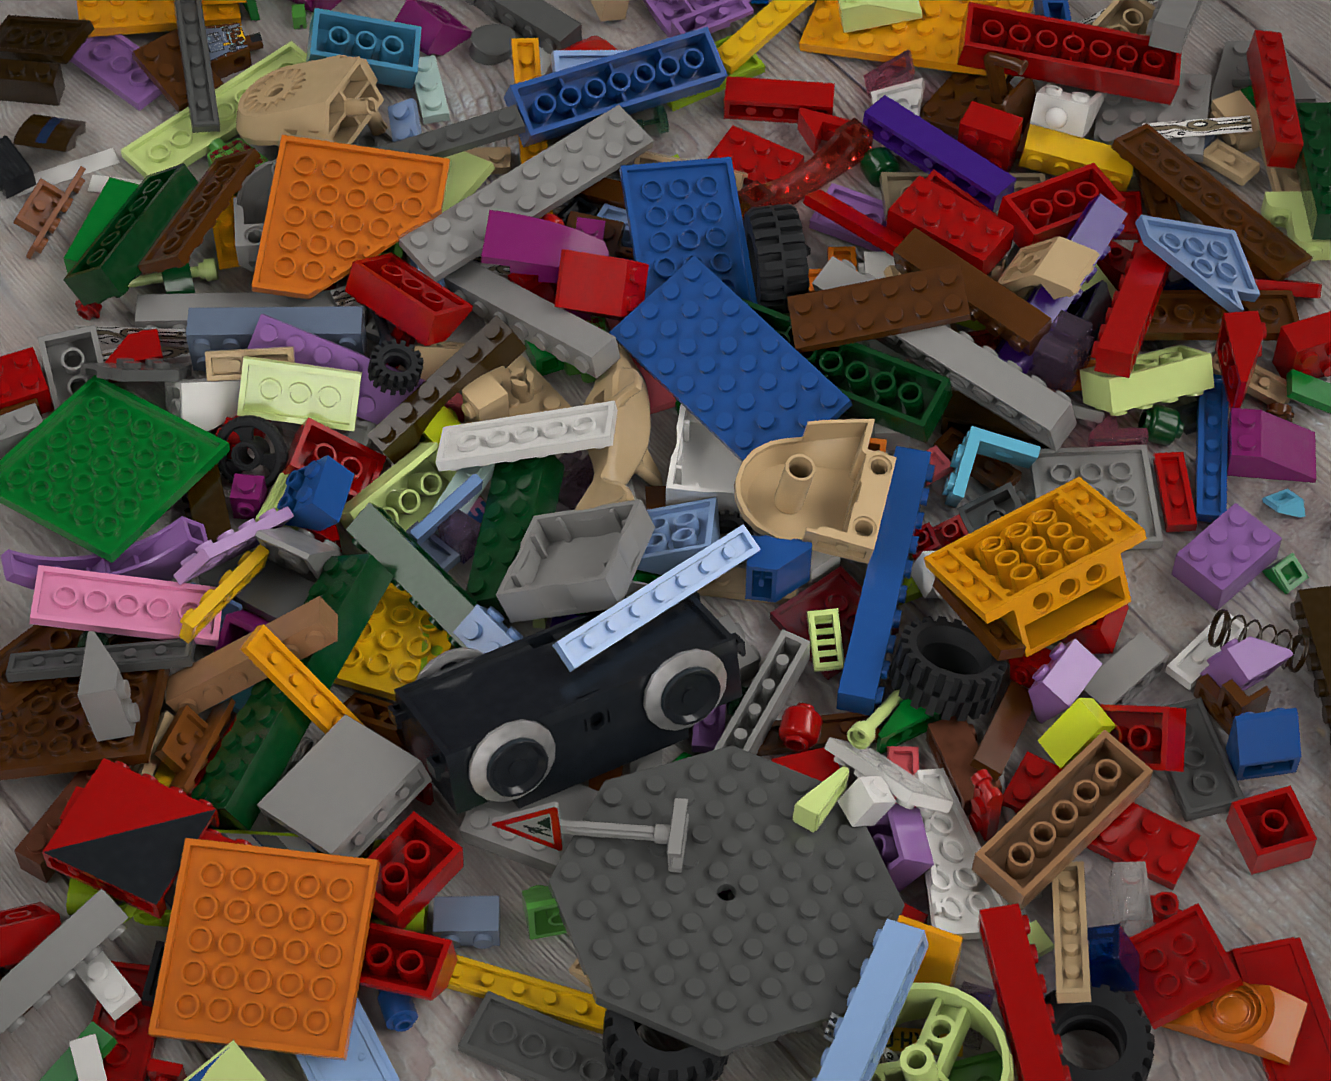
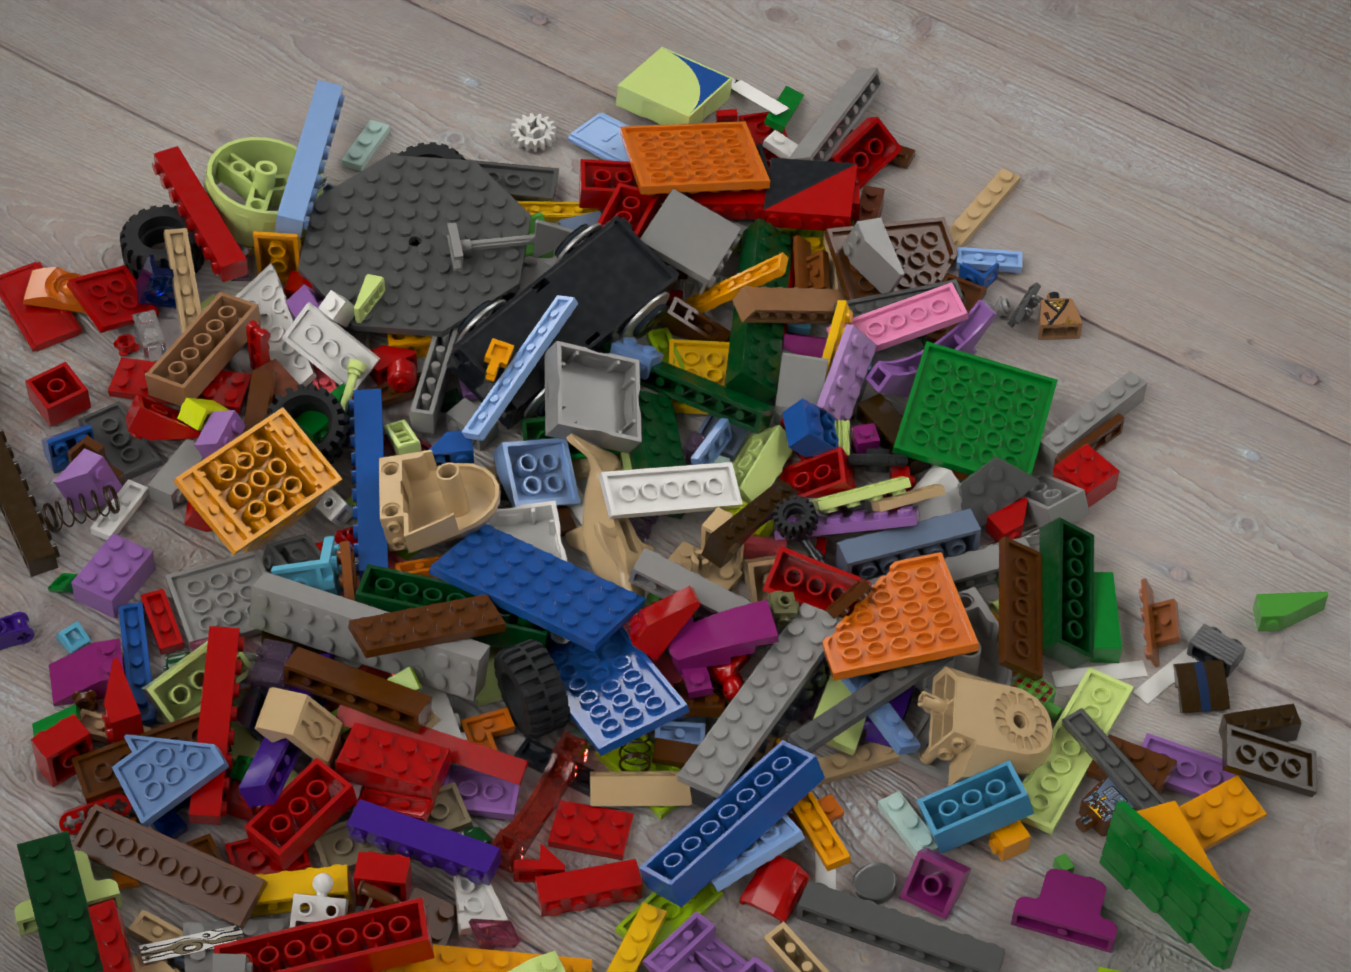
camera: 160 degrees right, 5 degrees down
(387, 249) = (855, 593): none -> reddish brown plate
(464, 274) = (783, 607): none -> olive brick
(685, 610) = (497, 356): none -> light orange plate
(946, 443) = (348, 577): none -> dark orange plate
(1113, 270) = (240, 767): none -> green slope

